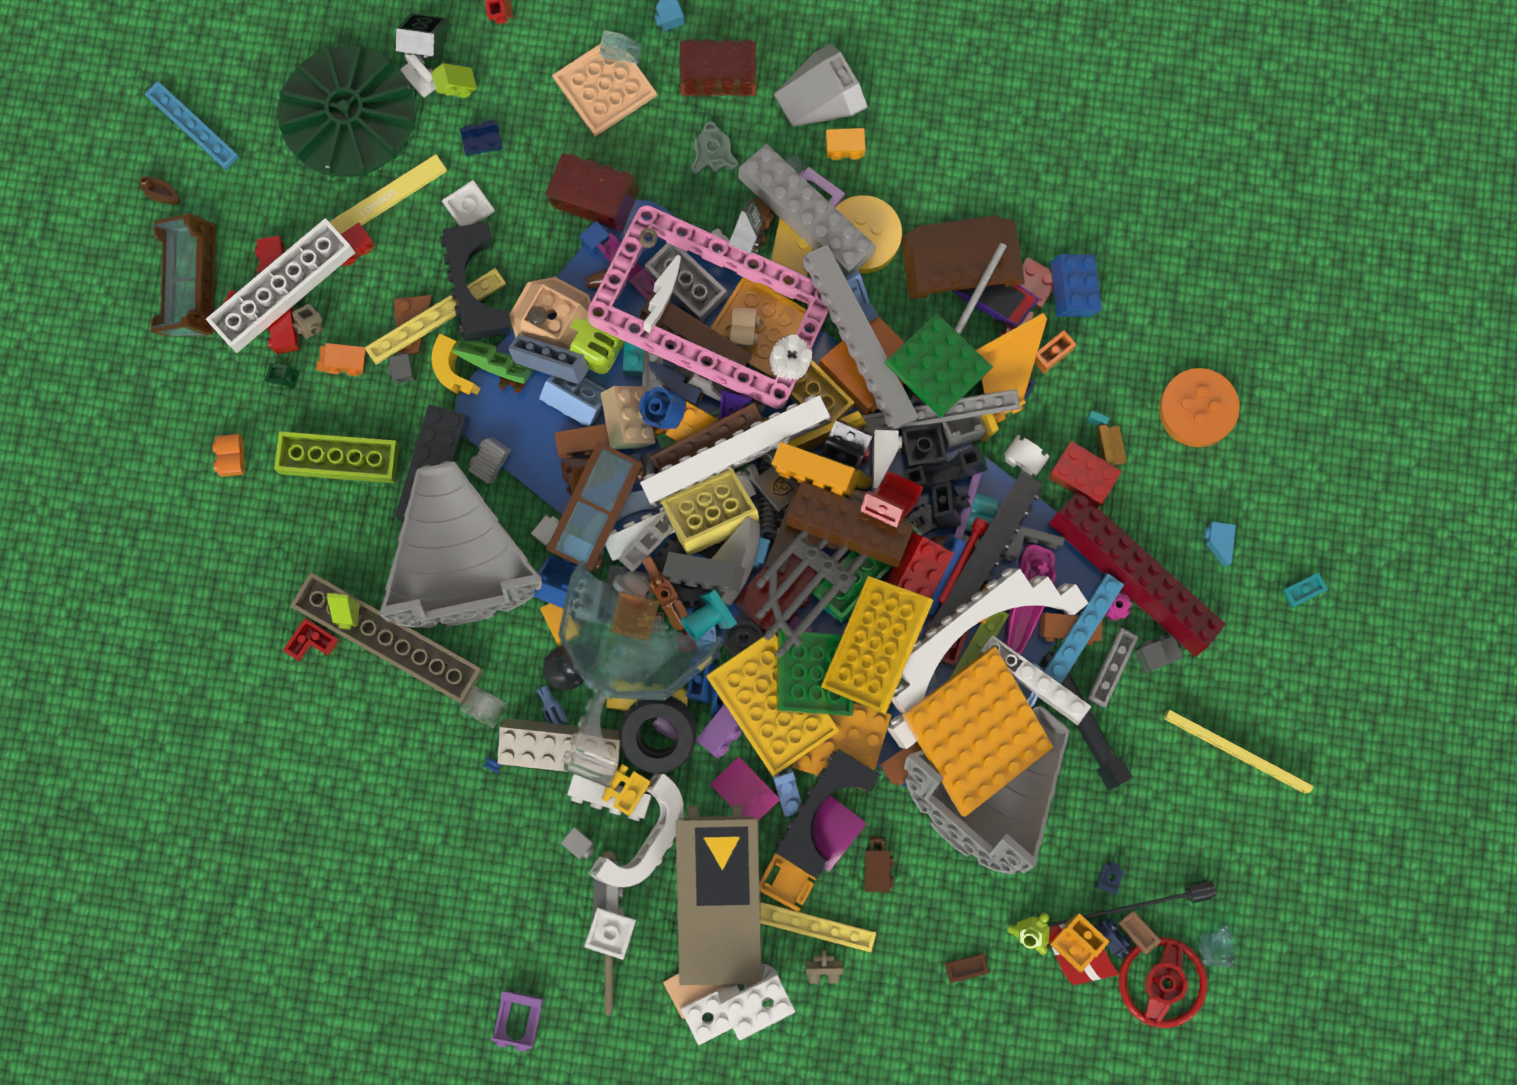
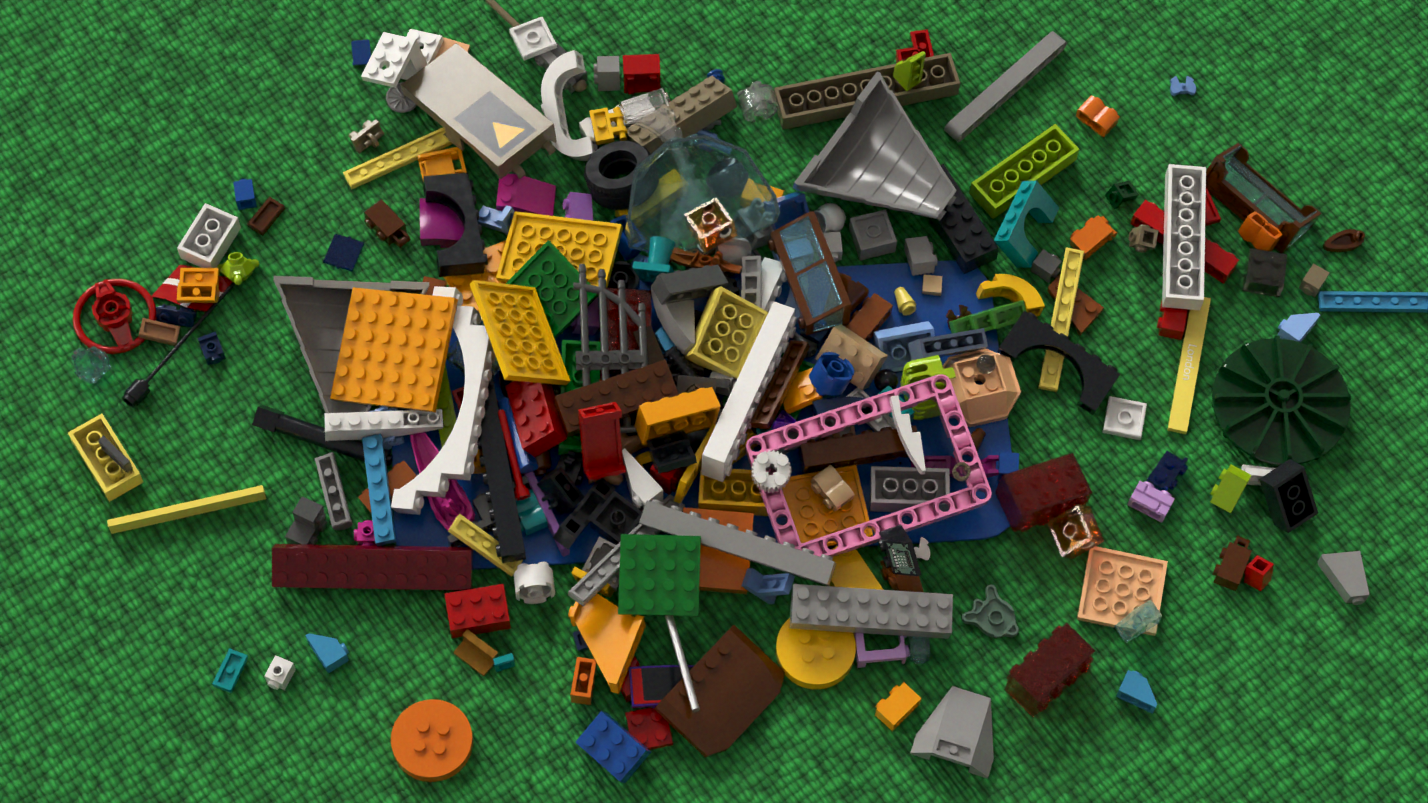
camera: 135 degrees right, 15 degrees down
(142, 425) = (1183, 88): none -> medium blue piece
(216, 247) = (1259, 232): none -> orange brick
(218, 179) = (1314, 280): none -> dark tan brick
(247, 217) = (1264, 272): none -> clear smoke brick
(271, 155) = (1297, 326): none -> light blue slope
(272, 546) = (1005, 86): none -> light grey beam
(367, 421) = (1011, 234): none -> teal arch
(503, 429) = (932, 285): none -> tan tile
(507, 34) = (1233, 563): none -> reddish brown brick
(510, 508) = (872, 235): none -> light grey container
(517, 127) = (1151, 501): none -> lavender brick
(533, 550) = (830, 217): none -> white piece
(539, 433) = (905, 303): none -> light yellow cone
(552, 818) = (641, 73): none -> red container
(598, 143) = (1075, 531): none -> clear orange brick
(617, 378) = (884, 378): none -> black piece
(761, 1055) = (361, 52): none -> blue bracket
(931, 877) = (343, 252): none -> clear blue piece
(969, 1003) = (245, 194): none -> blue brick
(1034, 983) = (209, 237): none -> white brick
(1045, 522) = (480, 542): none -> light yellow plate
(1268, 836) = (115, 454): none -> dark grey tile
(1269, 851) = (105, 470): none -> light yellow brick
(1270, 554) = (279, 673): none -> white brick

